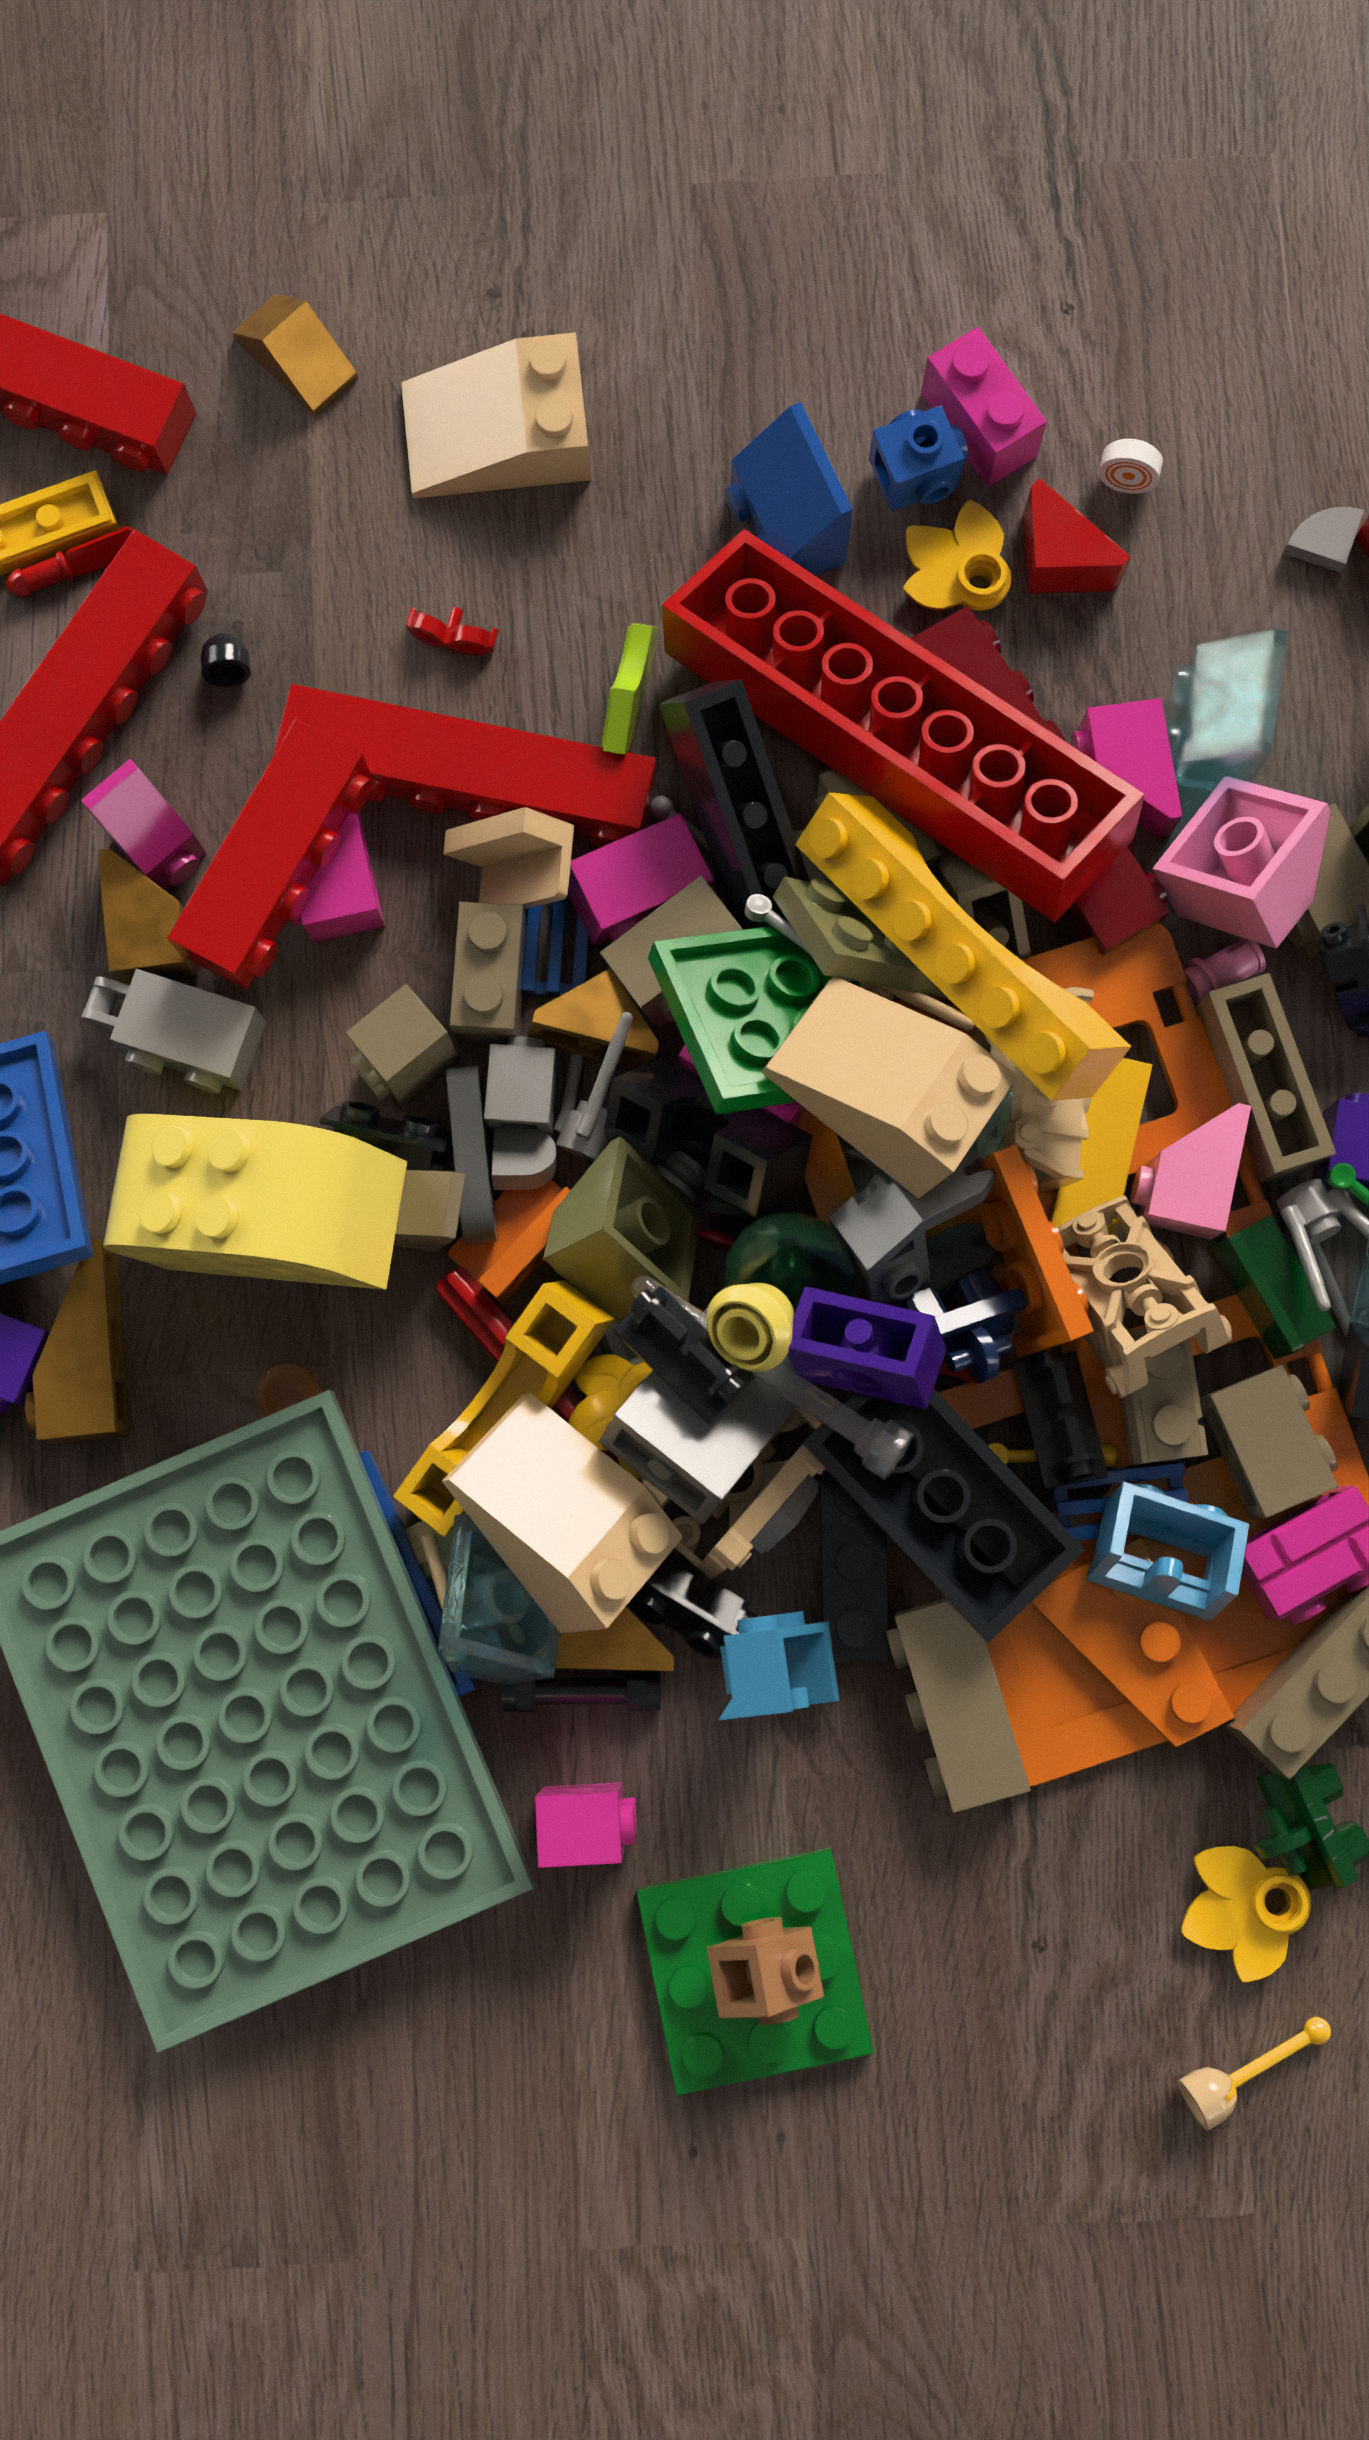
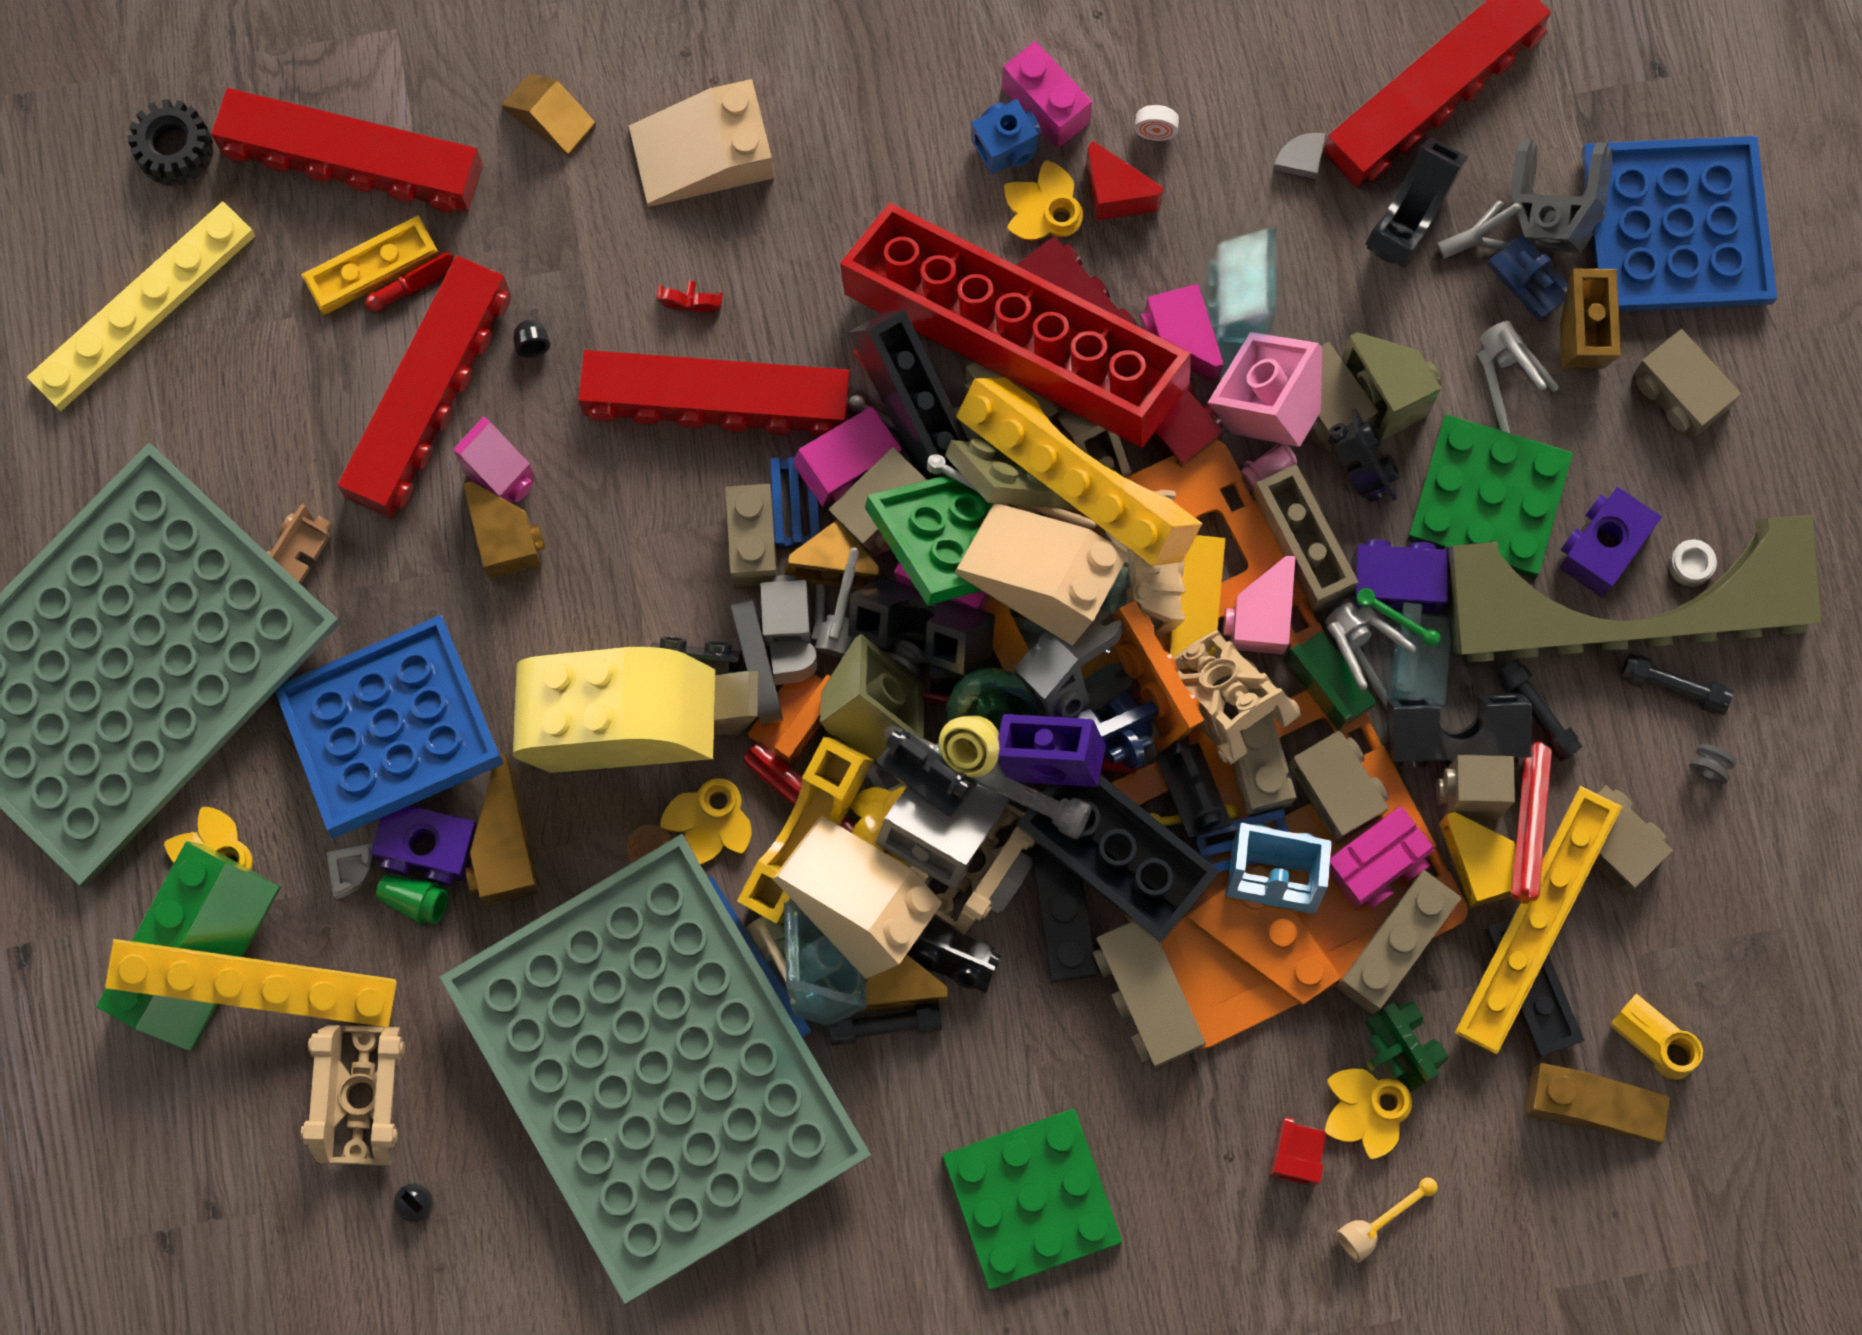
camera: 10 degrees left, 5 degrees down
(178, 1029) = (535, 601): light grey brick -> none
(272, 855) = (590, 470): red brick -> none
(345, 892) = (632, 482): dark pink slope -> none
(372, 1378) = (708, 828): none -> yellow plate
(401, 1048) = (698, 593): dark tan brick -> none
(520, 854) = (762, 450): tan panel -> none
(584, 1824) = (901, 1106): dark pink brick -> none
(629, 688) = (823, 322): lime tile -> none
(765, 1972) = (1039, 1186): medium nougat brick -> none
(778, 1666) = (1020, 982): dark azure window -> none
(792, 494) = (919, 174): blue slope -> none
(1139, 1960) = (1298, 1153): none -> red panel

